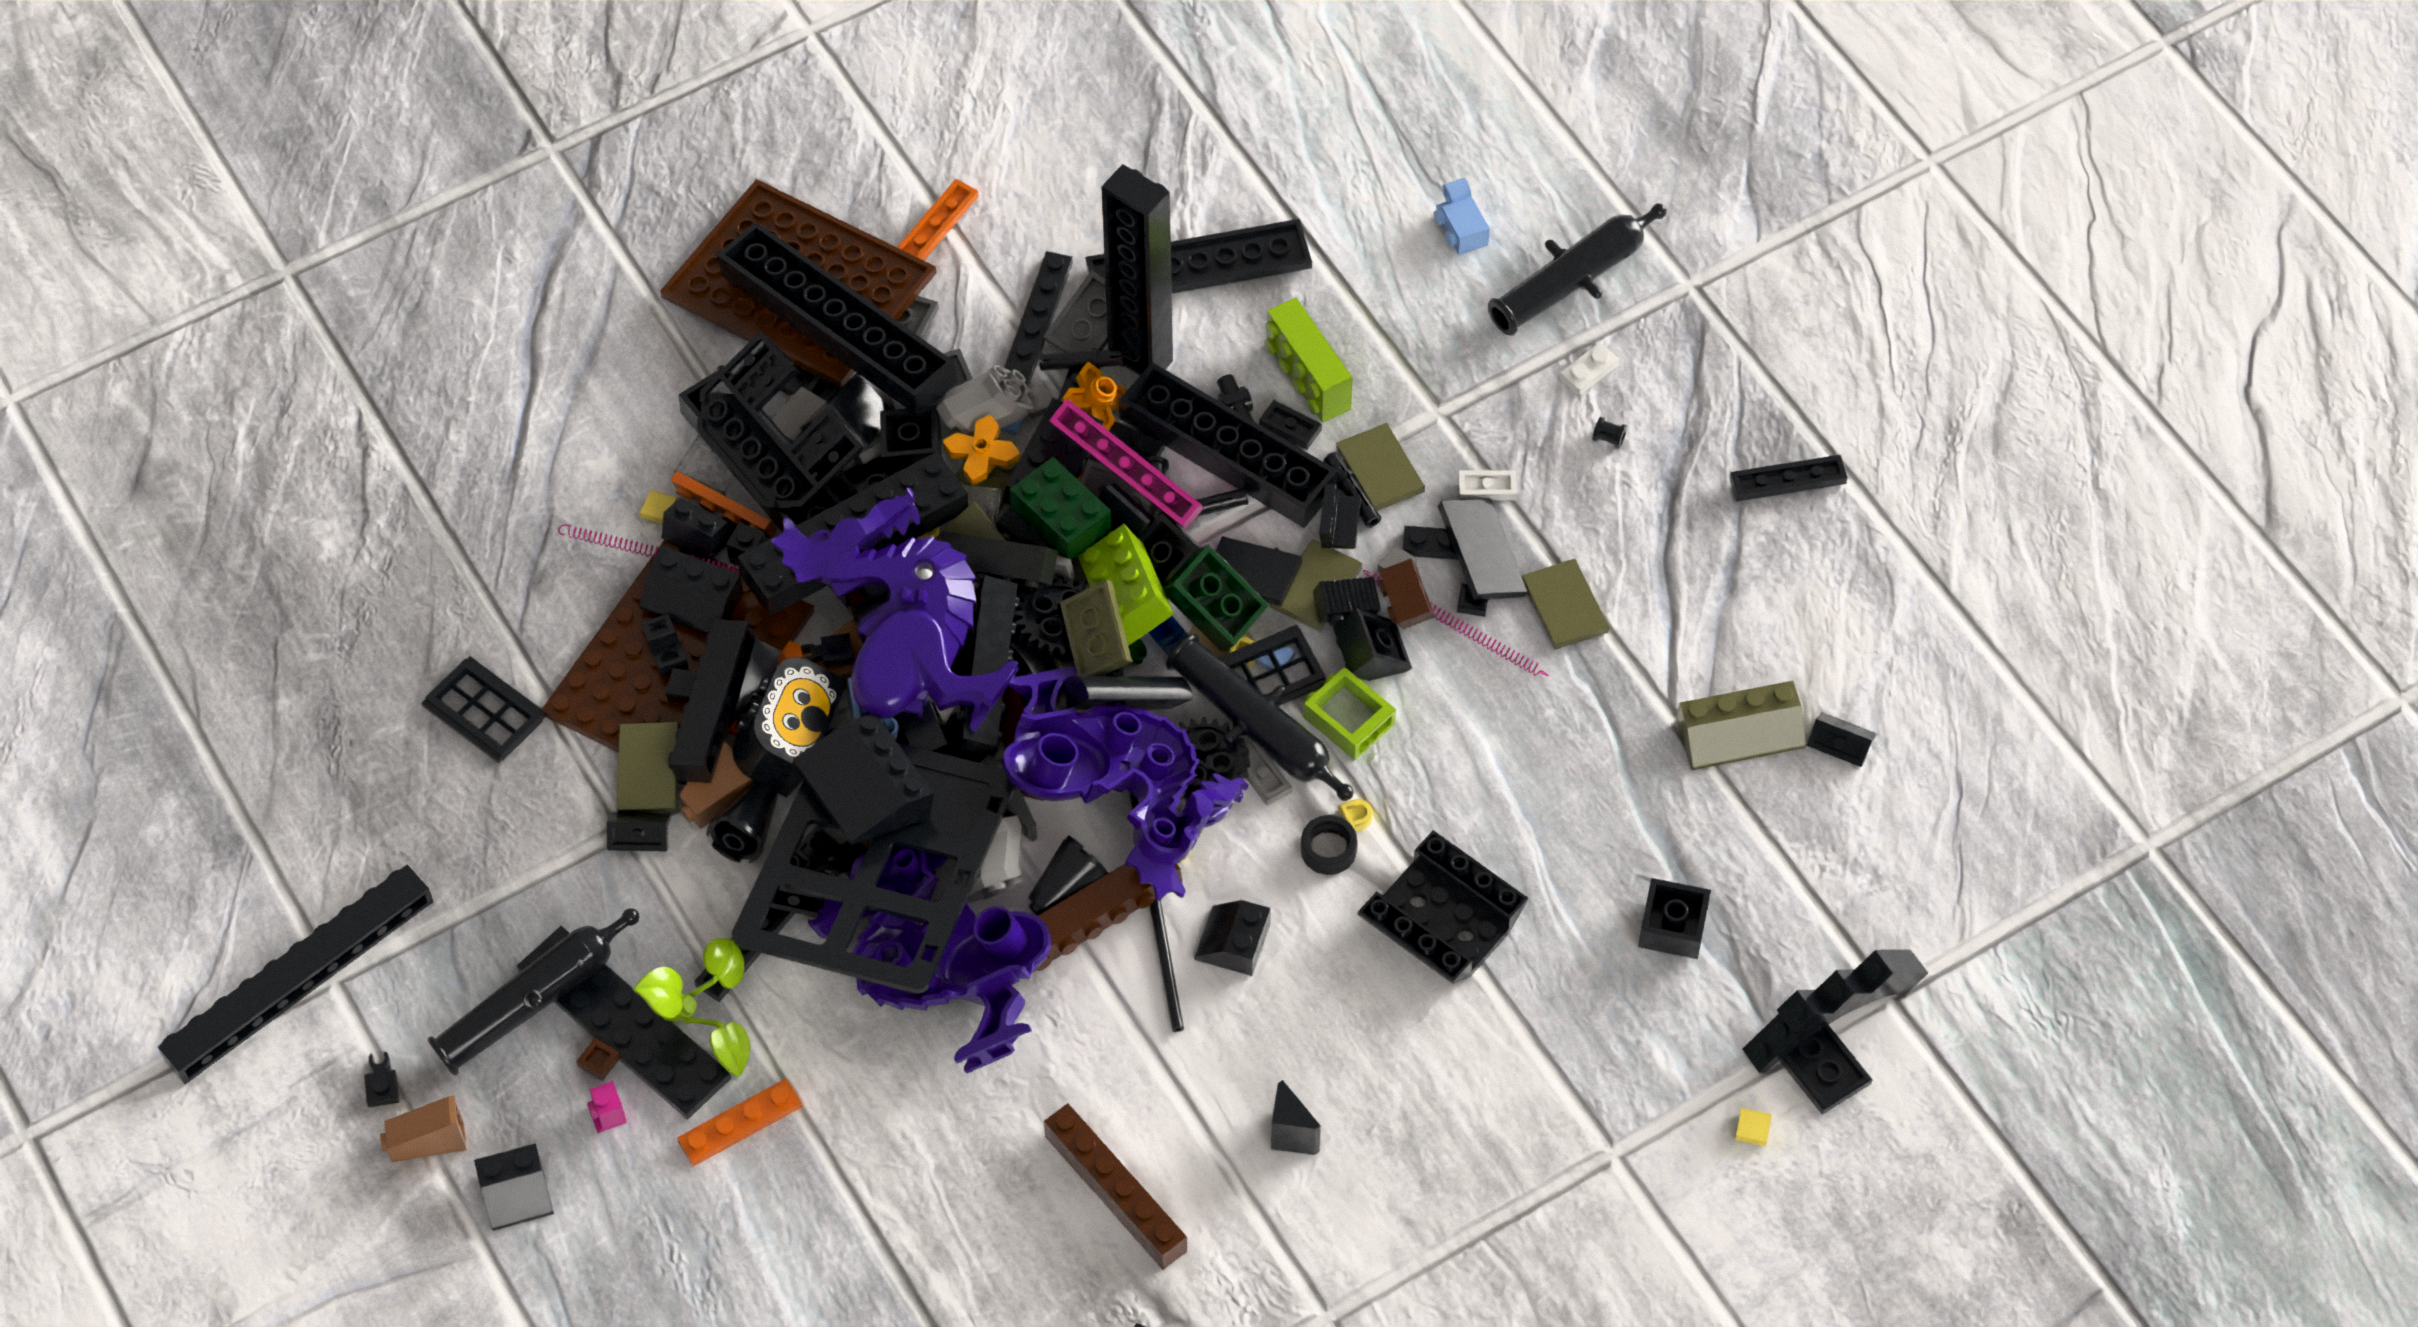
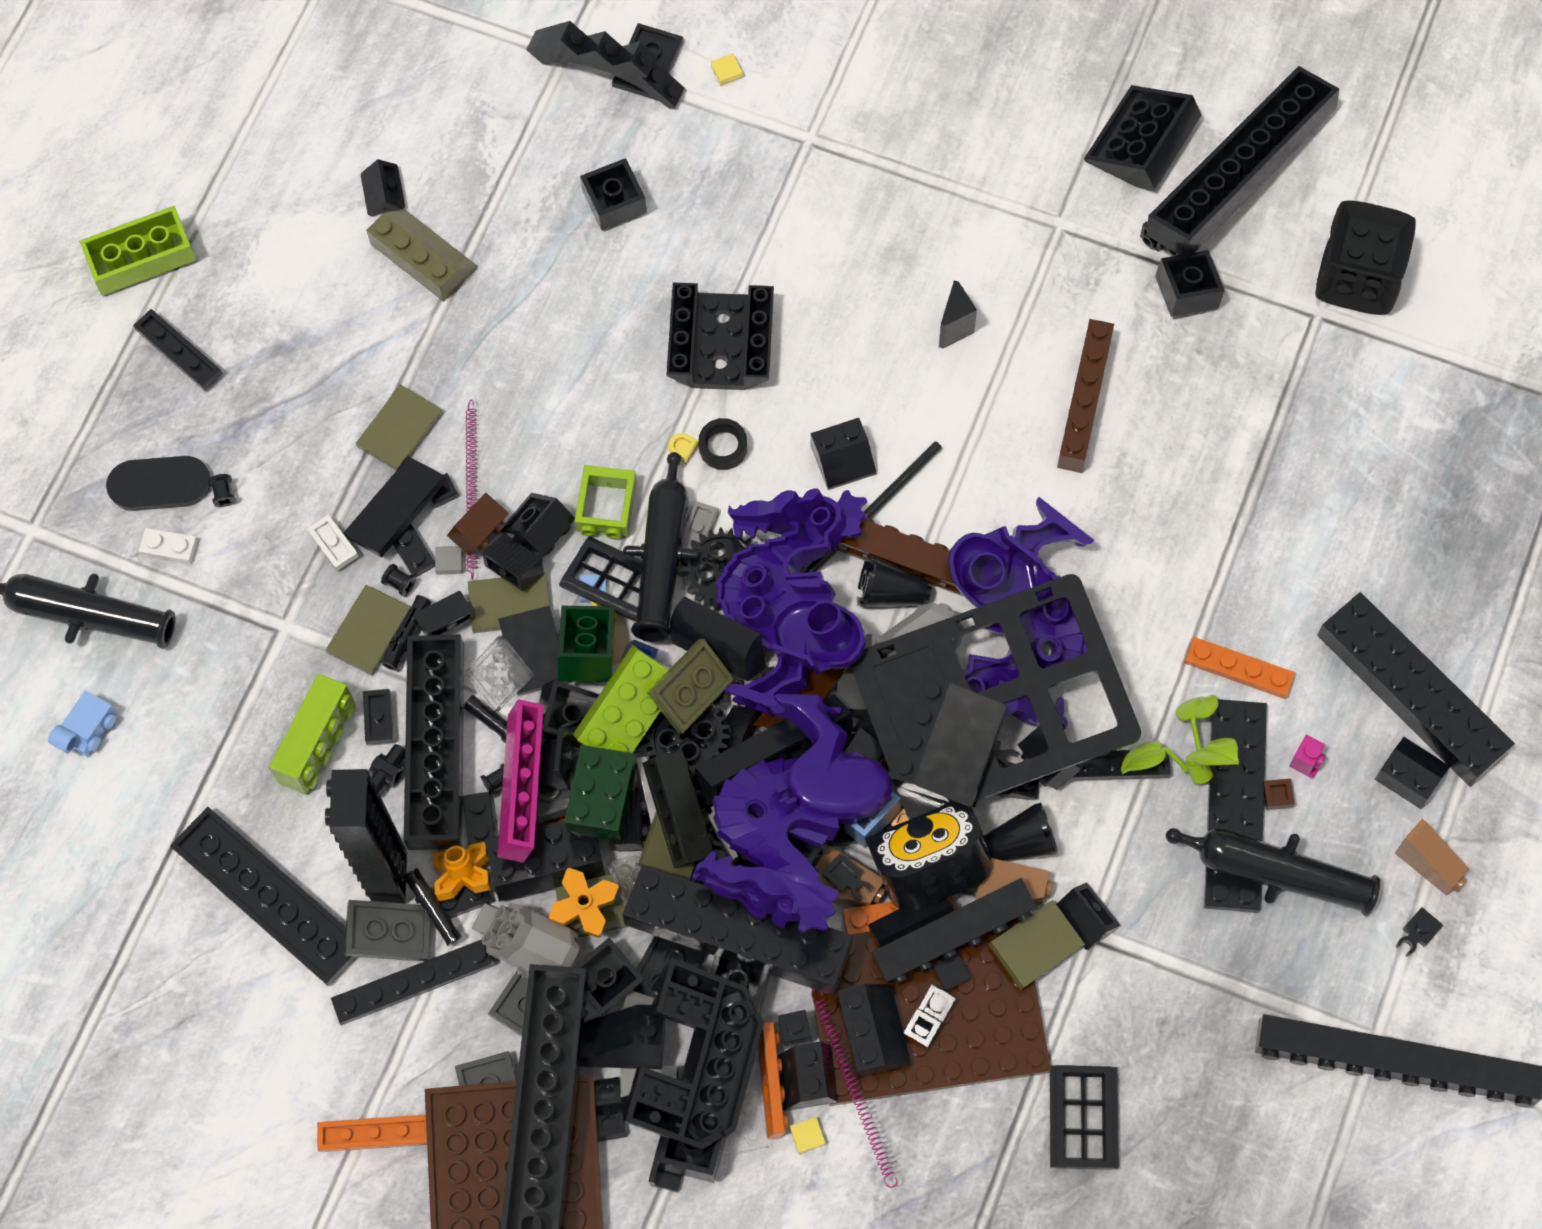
camera: 125 degrees left, 10 degrees up
(581, 1247) = (1415, 689): none -> black brick
(1249, 528) = (498, 673): none -> clear tile
(1407, 511) = (398, 580): none -> black bush
(1659, 394) = (158, 483): none -> black tile
(1919, 497) = (137, 250): none -> lime brick

